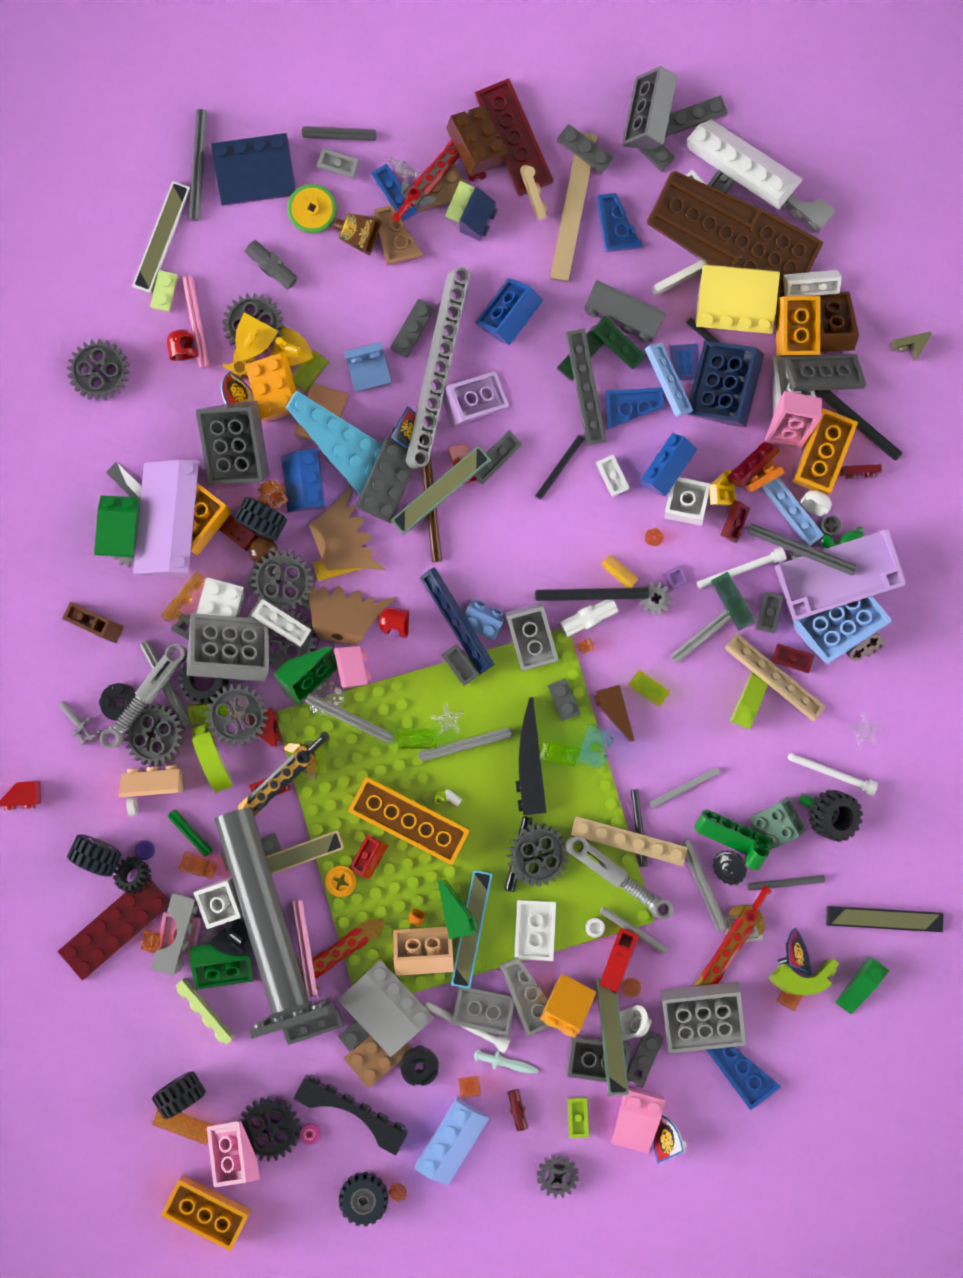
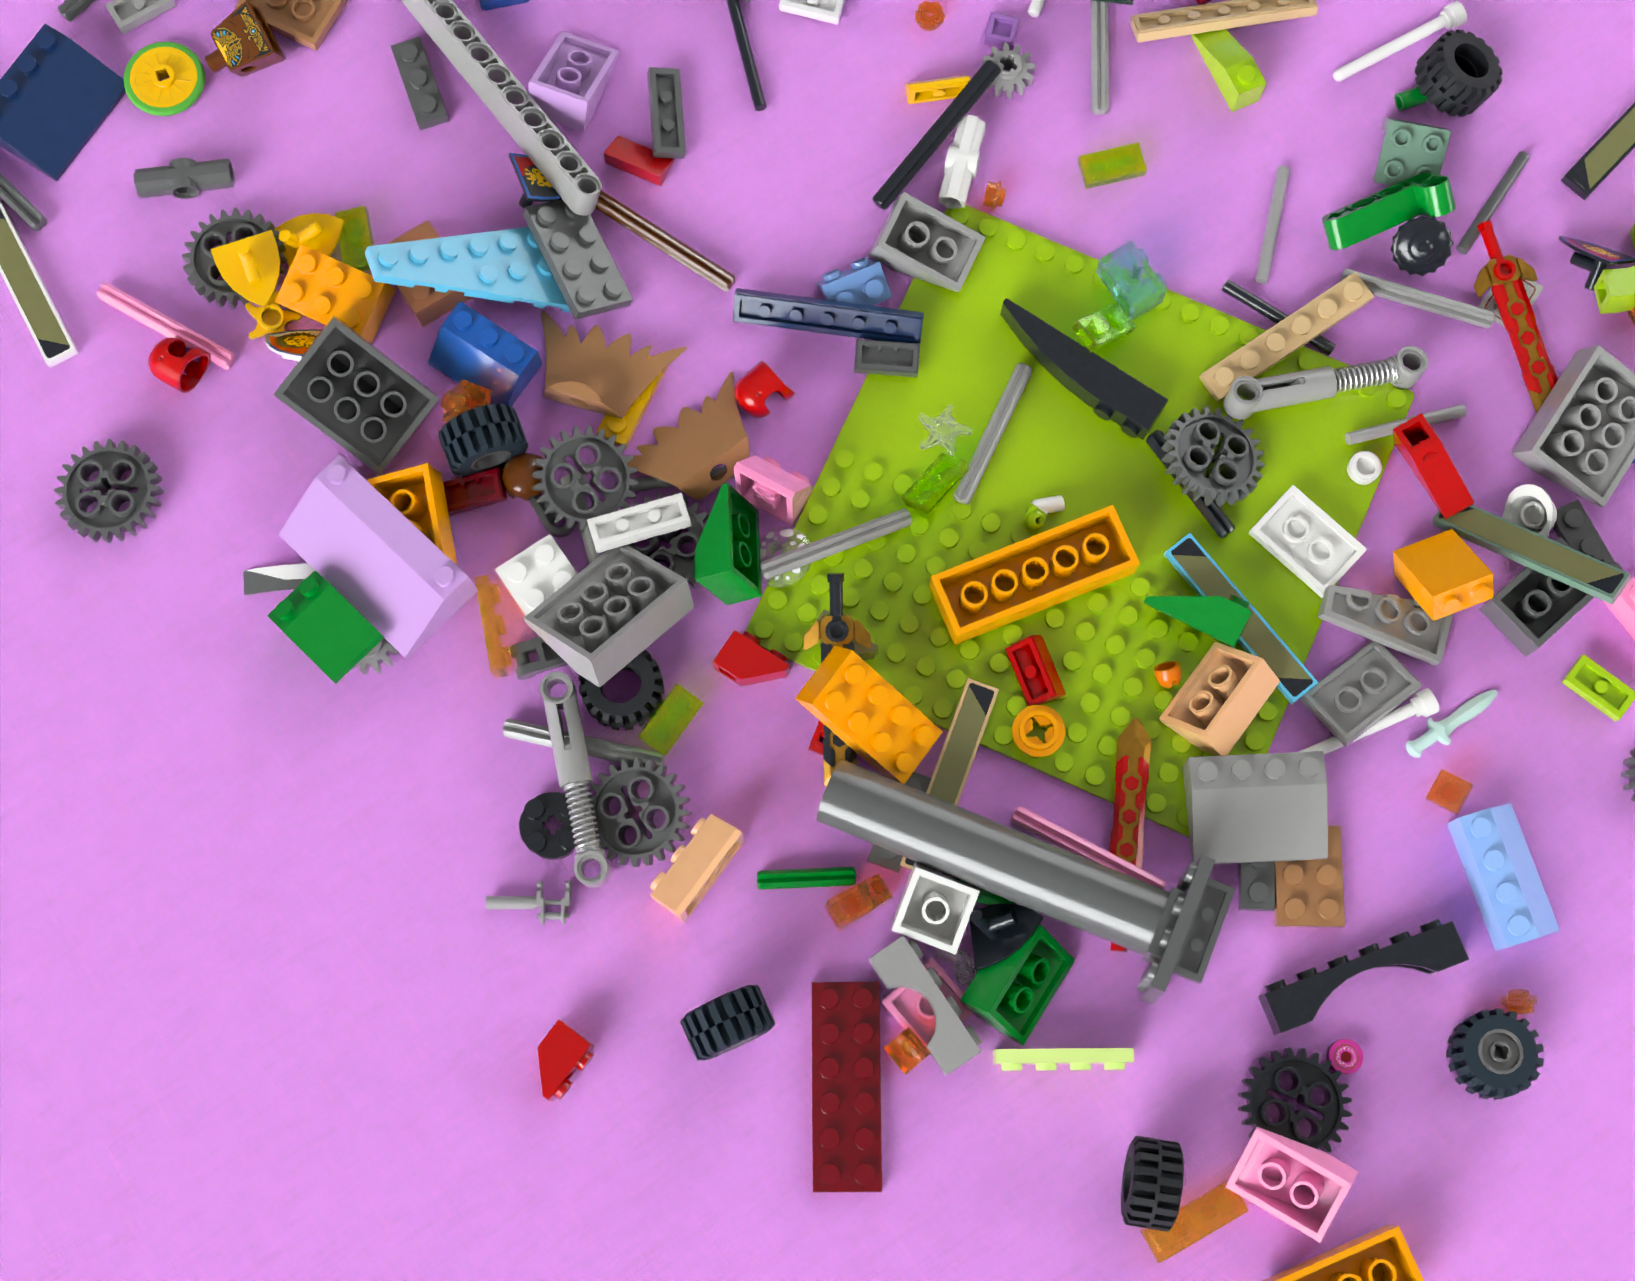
camera: 45 degrees left, 10 degrees down
(93, 622) = (420, 768): reddish brown slope -> none
(123, 871) = (780, 997): black tyre -> none
(132, 806) = (705, 922): white tile -> none
(145, 850) = (777, 957): dark purple tile -> none
(164, 291) = (91, 333): yellowish green plate -> none
(210, 758) = (733, 760): lime arch -> none
(220, 722) = (698, 703): dark grey gear -> none
(279, 802) = (869, 714): none -> light orange brick
(368, 367) = (415, 167): medium blue bracket -> none
(419, 1055) = (1352, 835): black plate -> none
(441, 490) = (648, 202): olive tile -> none
(517, 1110) = (1528, 757): dark red pin -> none
(564, 699) = (1039, 272): dark grey plate -> none
(613, 706) = (1104, 223): reddish brown slope -> none
(631, 987) = (1480, 486): clear orange plate -> none

